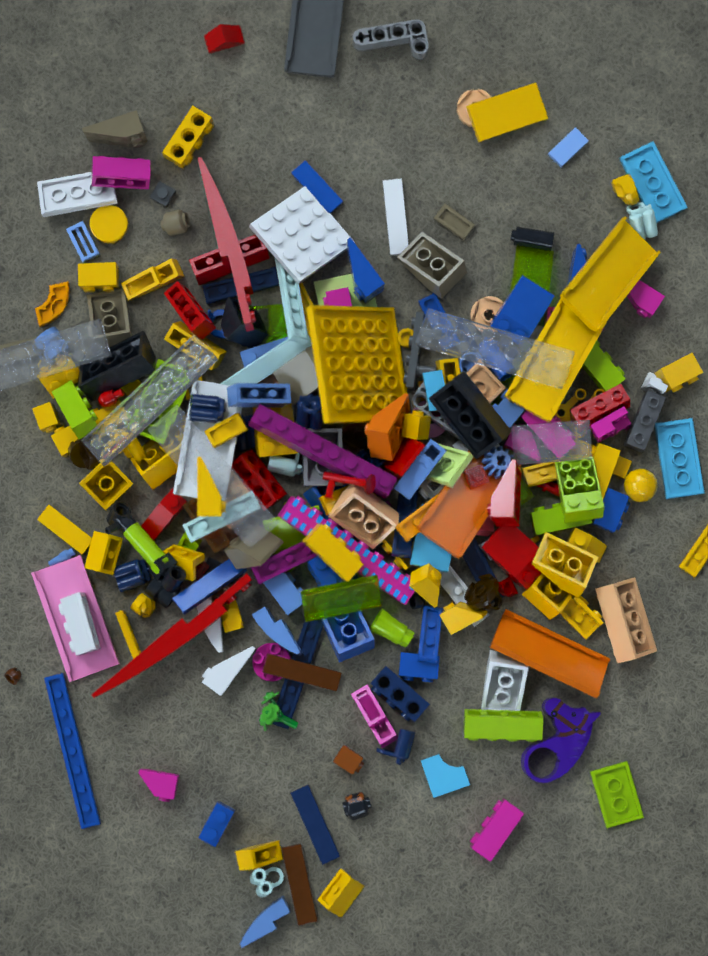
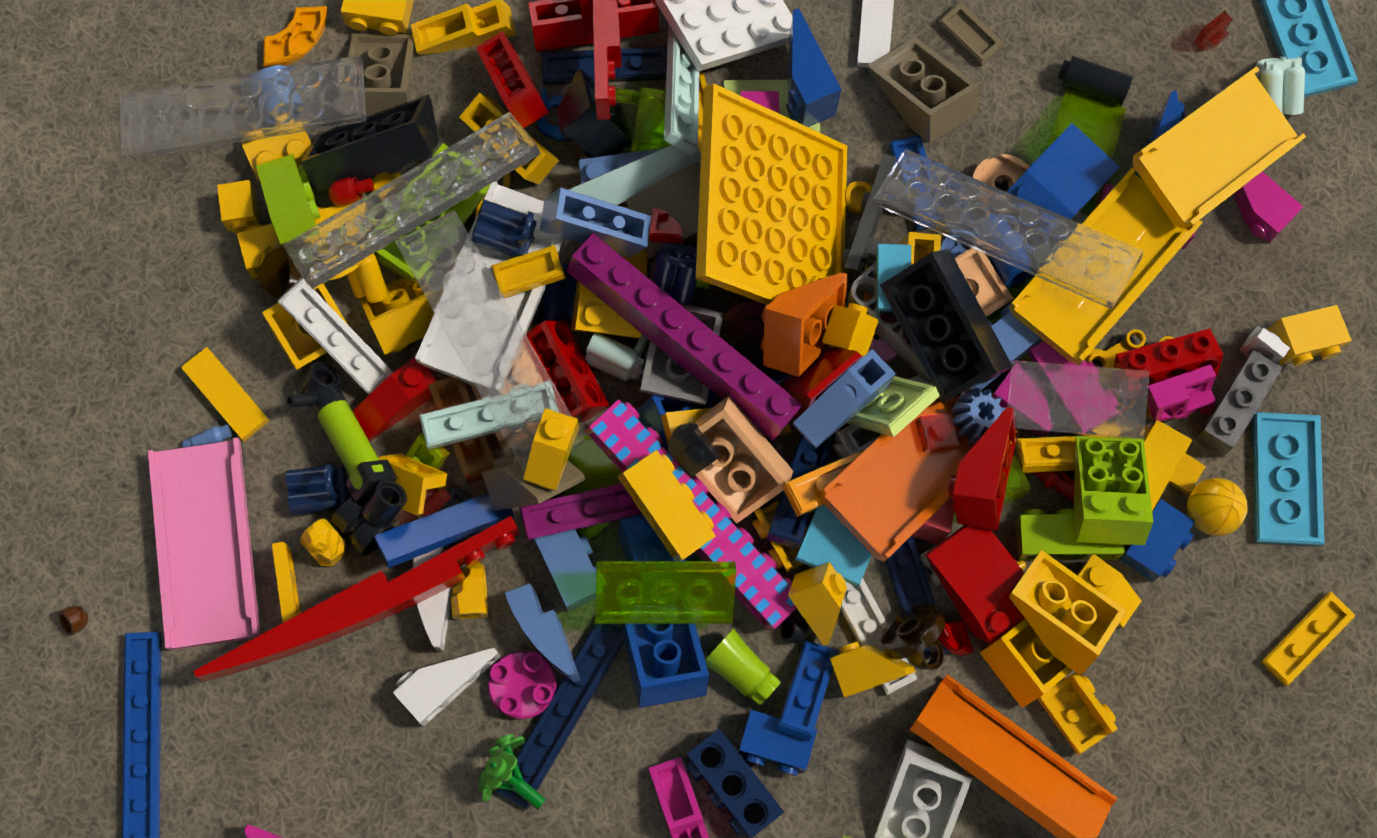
camera: 10 degrees right, 10 degrees down
(79, 623) = (206, 549): white slope -> none
(103, 553) = (277, 441): yellow brick -> none
(123, 487) = (335, 336): none -> white tile
(208, 496) = (472, 370): yellow slope -> none
(262, 534) = (551, 449): none -> yellow slope
(299, 388) = (664, 228): none -> red tile
(301, 672) = (570, 711): reddish brown tile -> none
(340, 515) = (692, 448): none -> black plate
(368, 483) = (751, 399): red piece -> none
(598, 194) = (1214, 32): none -> clear red plate
(601, 369) = (1177, 302): lime brick -> none
(626, 189) = (1261, 33): yellow rock -> none
(626, 620) = (1155, 734): light nougat slope -> none

